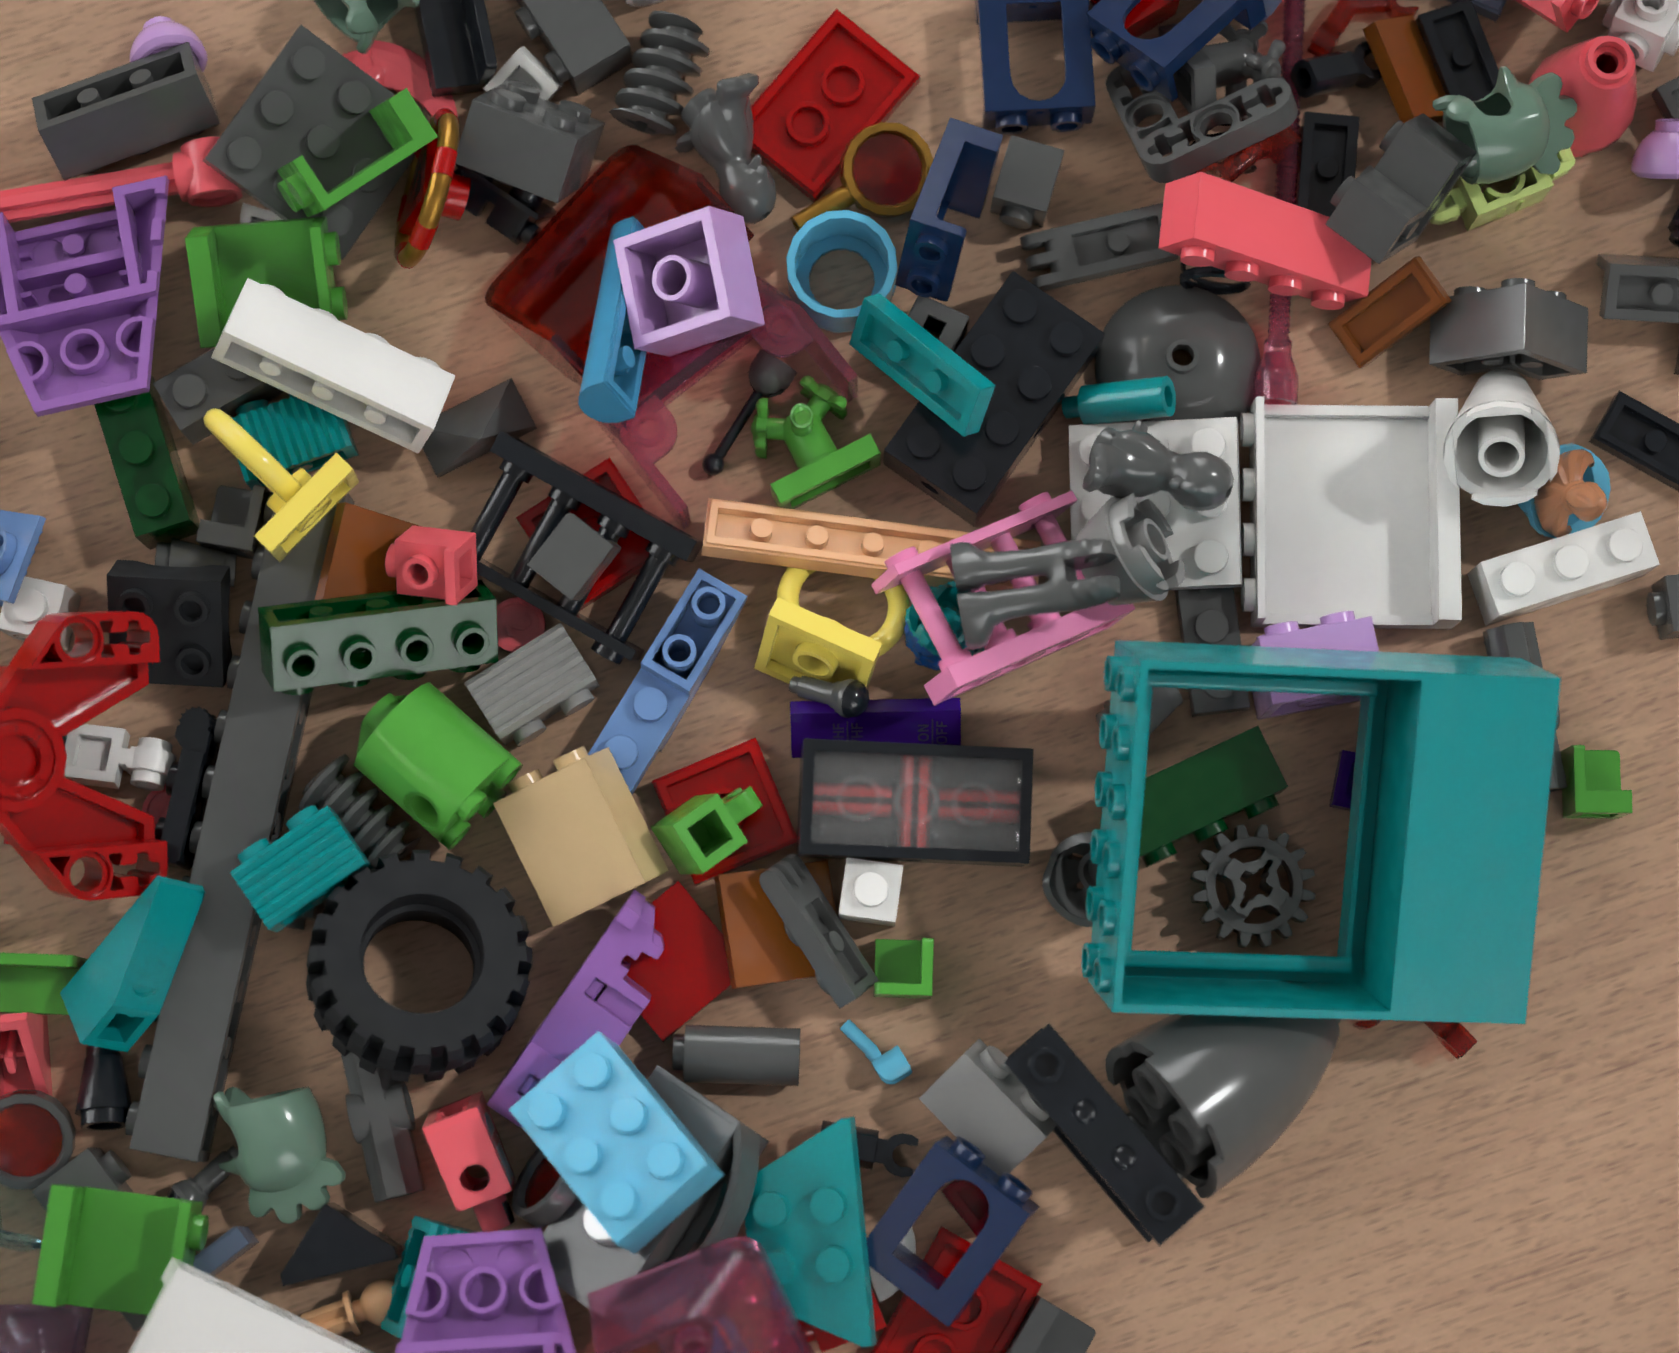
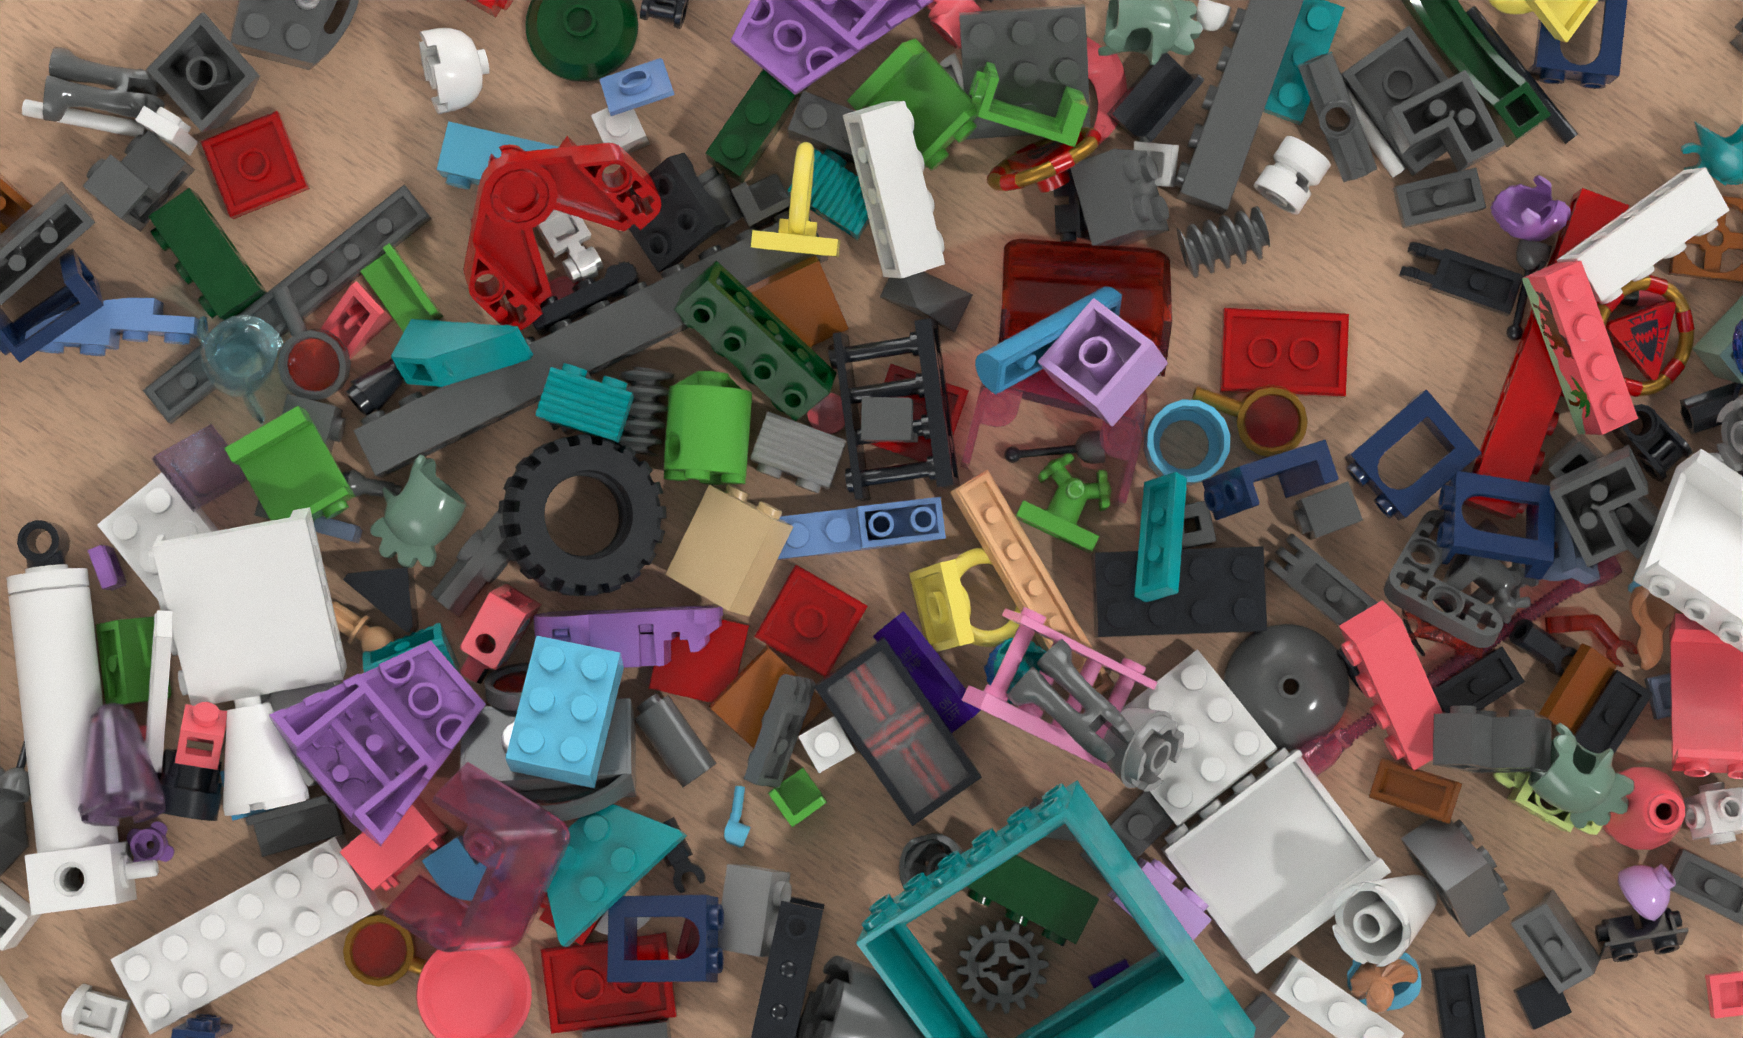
camera: 55 degrees right, 5 degrees up
(448, 561) = (822, 340): coral brick -> none
(705, 829) = (787, 619): bright green brick -> none
(724, 138) = (1213, 309): dark grey animal -> none
(846, 697) = (929, 642): dark grey piece -> none
(1122, 401) = (1235, 671): teal cylinder -> none
(1142, 465) = (1199, 714): dark grey animal -> none

